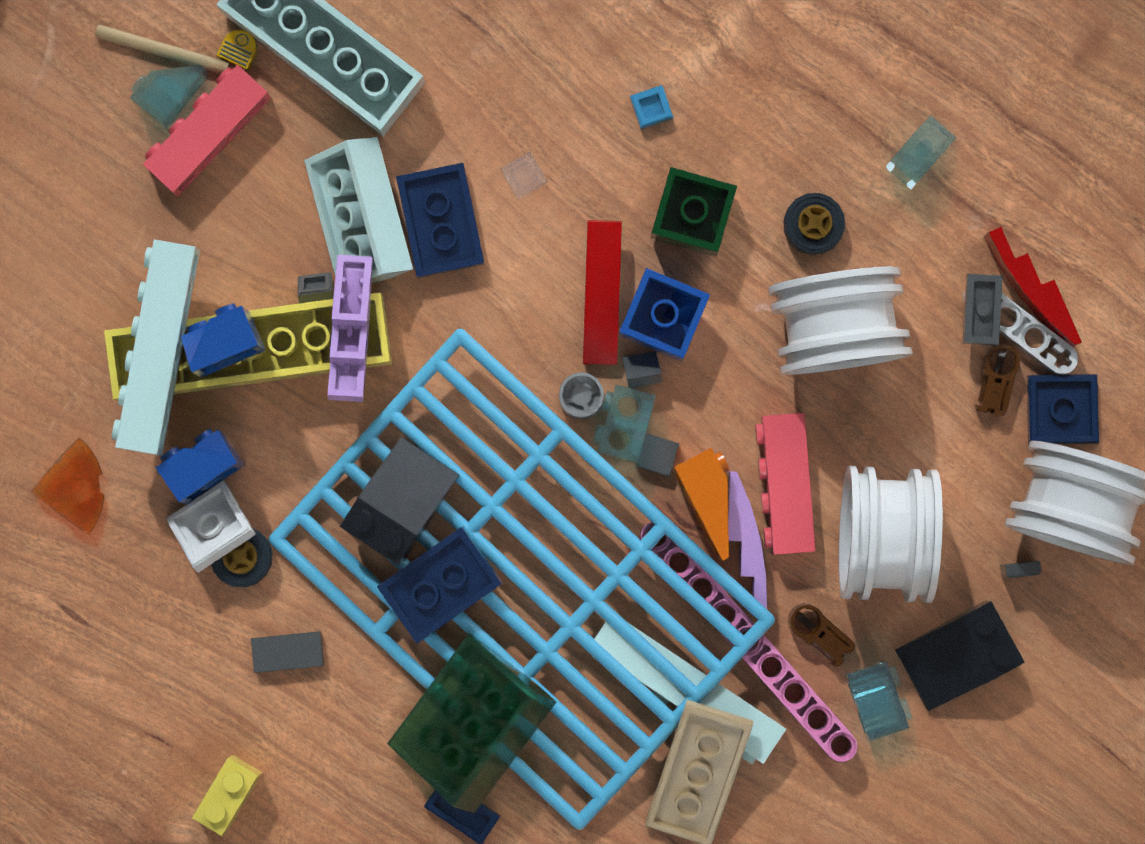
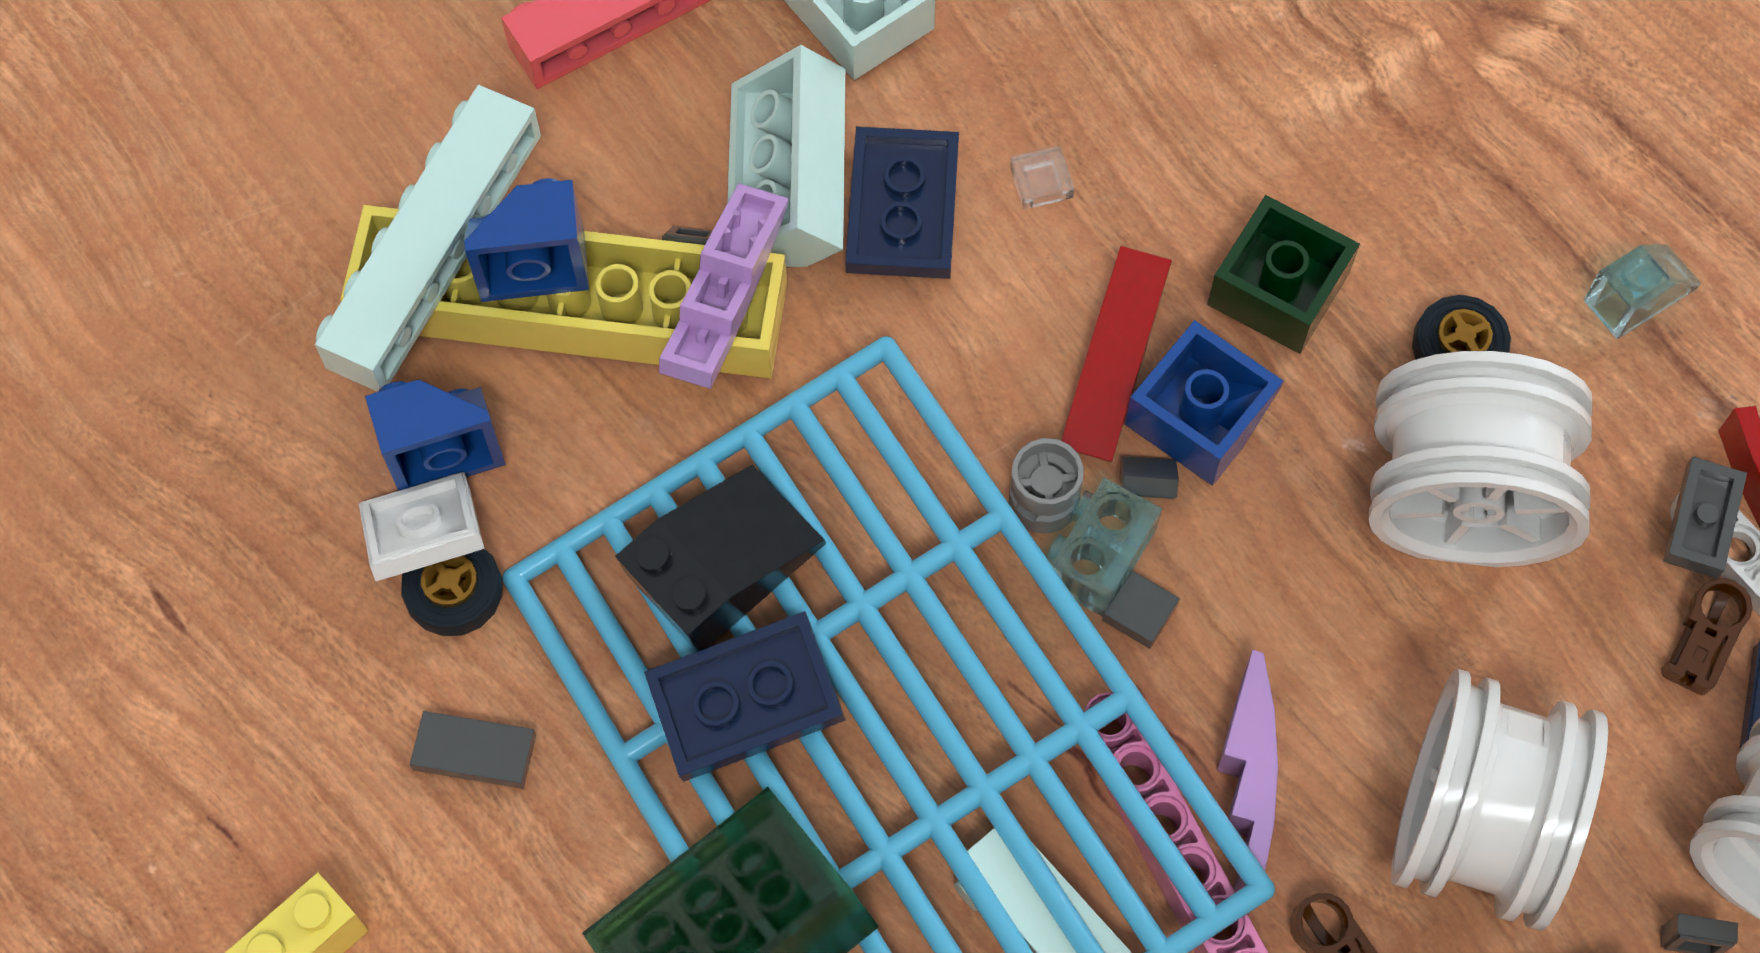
camera: 15 degrees right, 20 degrees down
(73, 486) = (240, 423): clear orange brick -> none
(651, 107) = (1252, 136): dark azure tile -> none
(706, 490) = (1204, 660): orange slope -> none
(787, 484) = (1337, 702): coral brick -> none

